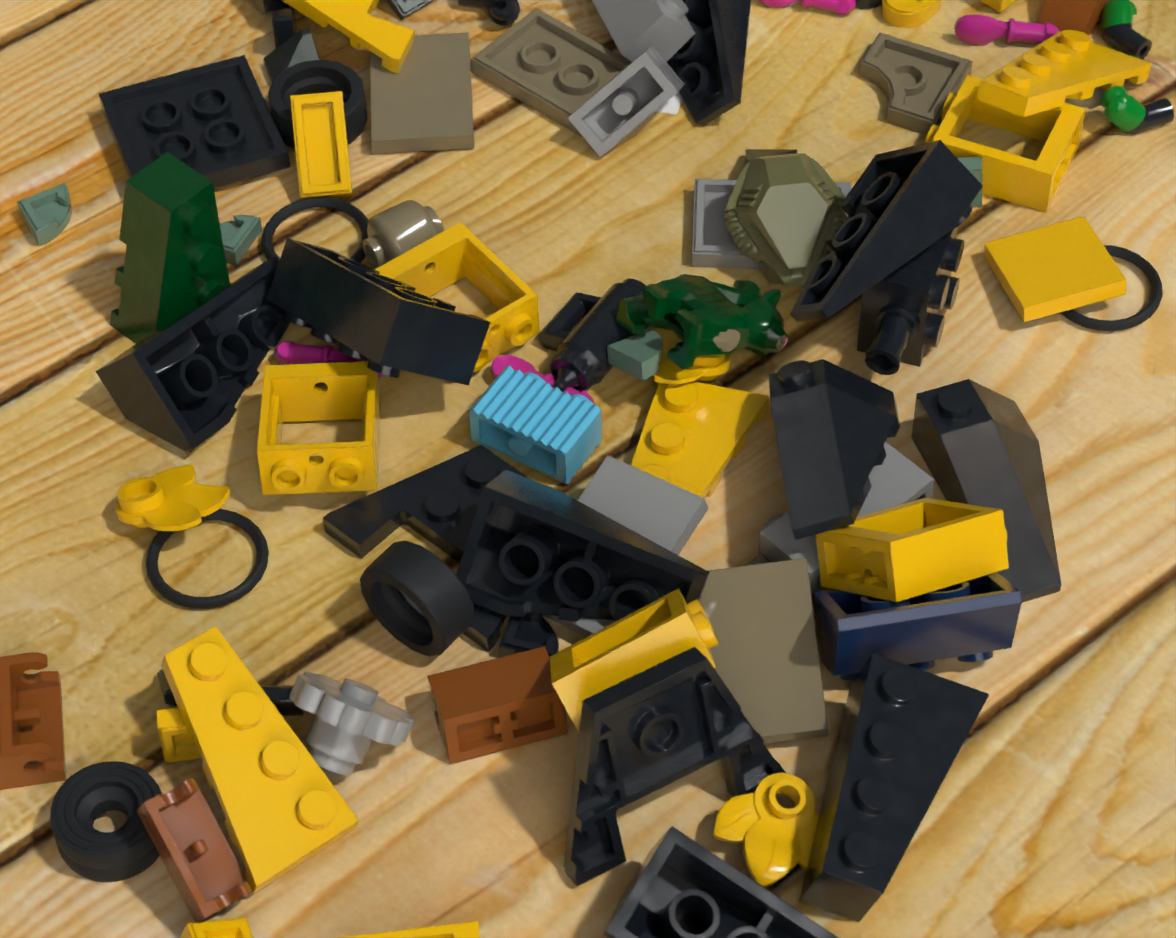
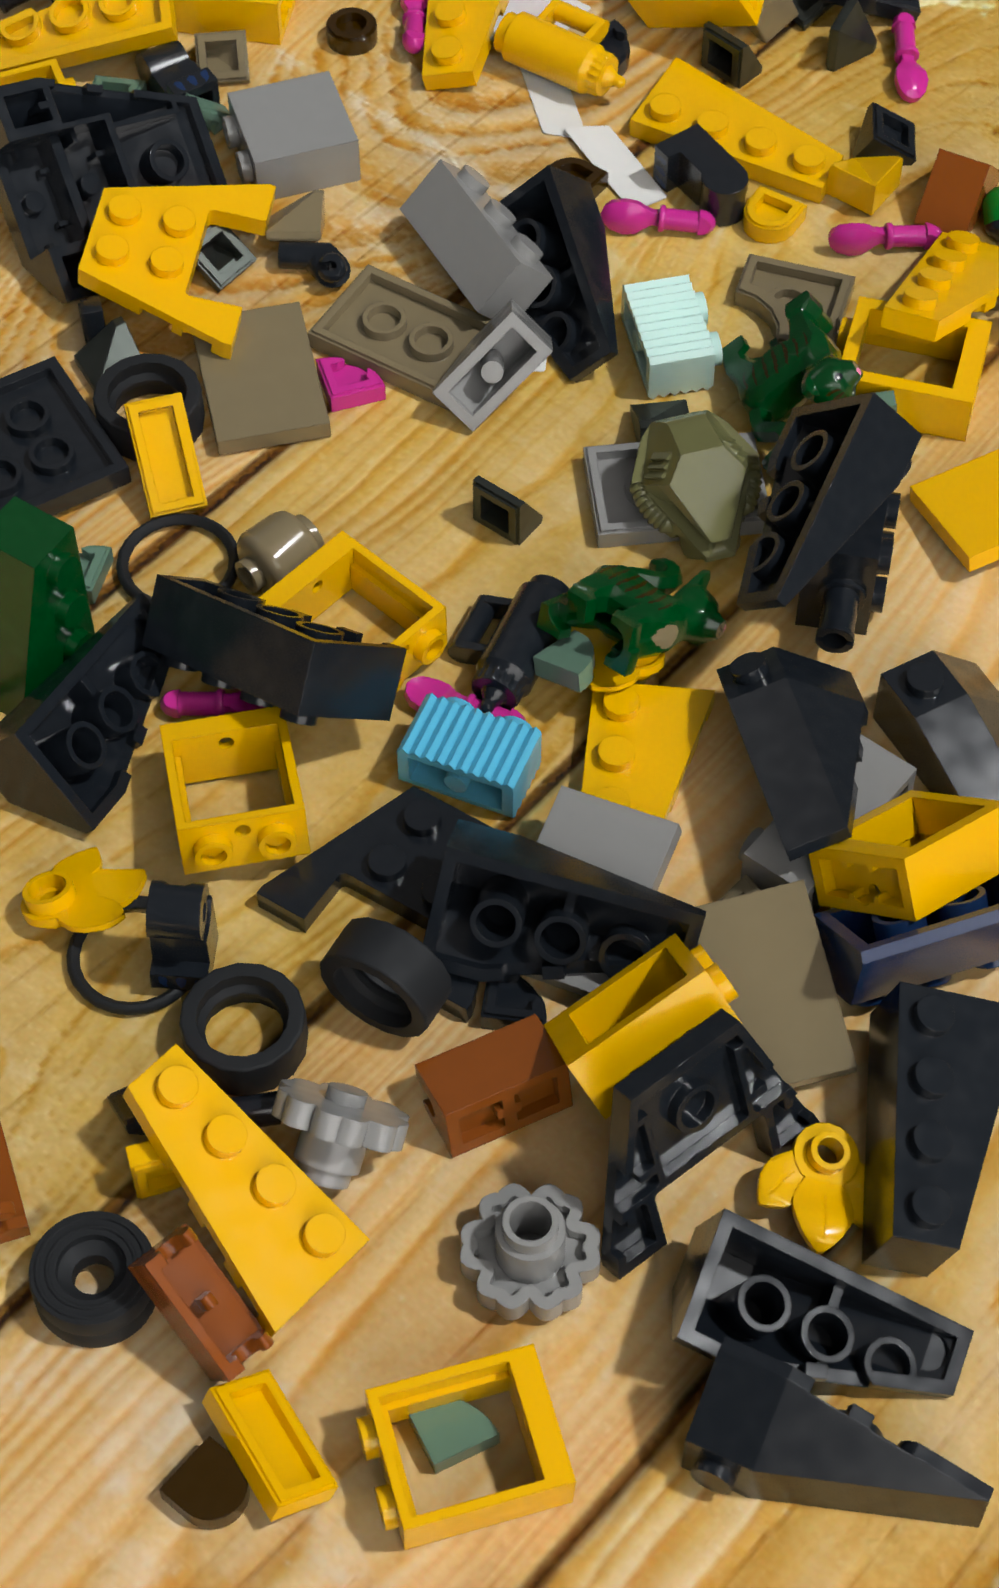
camera: 10 degrees left, 5 degrees up
(245, 540) = (180, 934): none -> black leg
(279, 594) = (251, 985): none -> black tyre
(498, 106) = (348, 385): none -> dark pink tile
(499, 850) = (530, 1252): none -> light grey plant
(611, 225) = (503, 511): none -> pearl dark grey slope
(792, 93) = (670, 335): none -> light aqua brick
(893, 126) = (790, 371): none -> dark green animal

